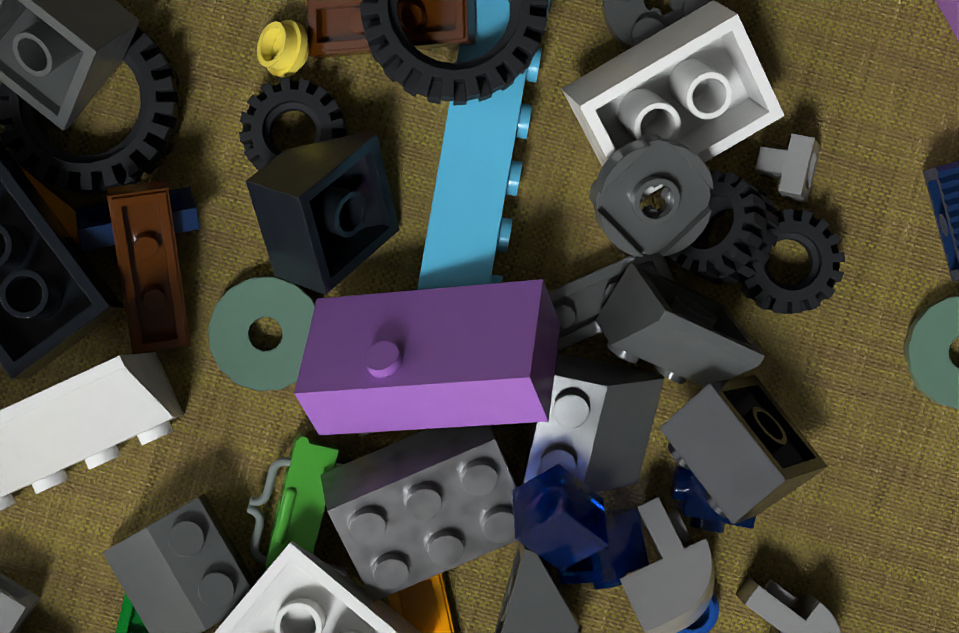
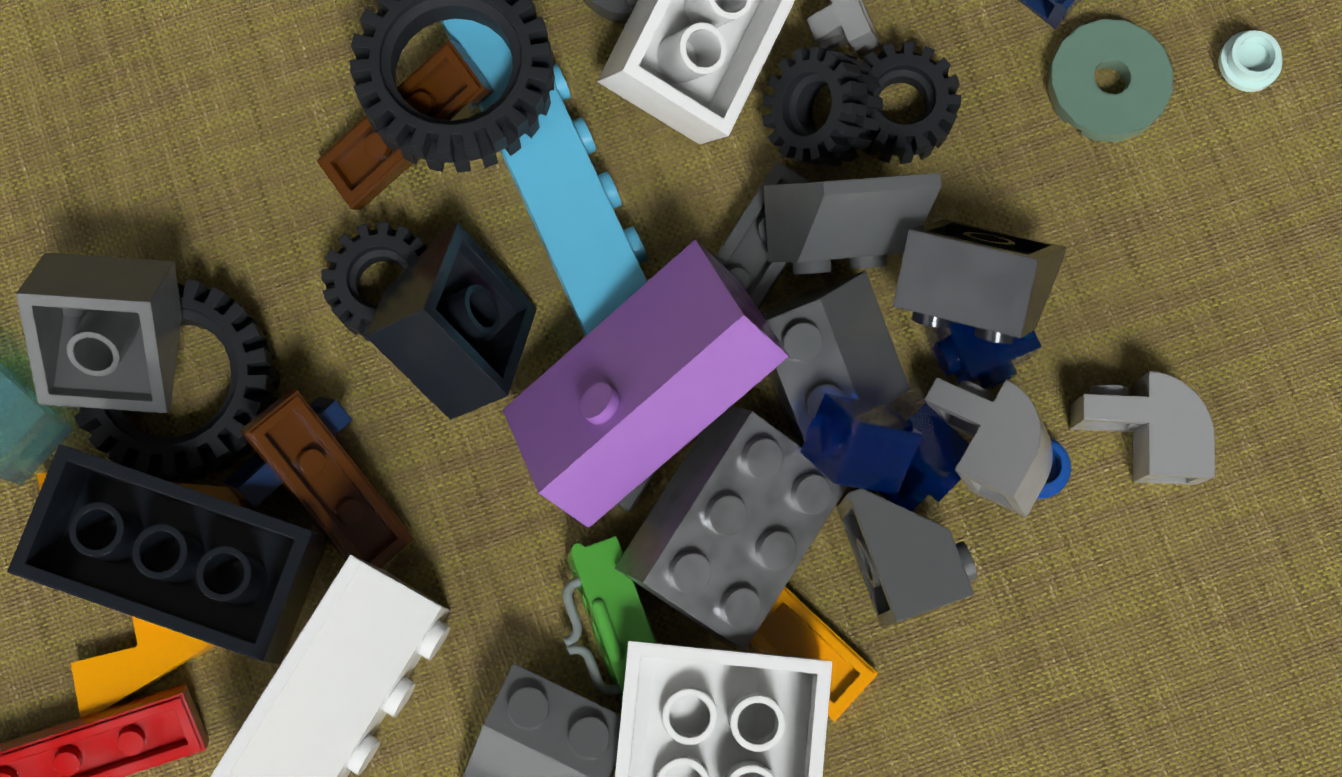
camera: 35 degrees left, 10 degrees down
(232, 327) = (440, 474): sand green tile -> none
(283, 48) = (323, 215): light yellow plate -> none
(633, 170) = (771, 92): dark grey plate -> none

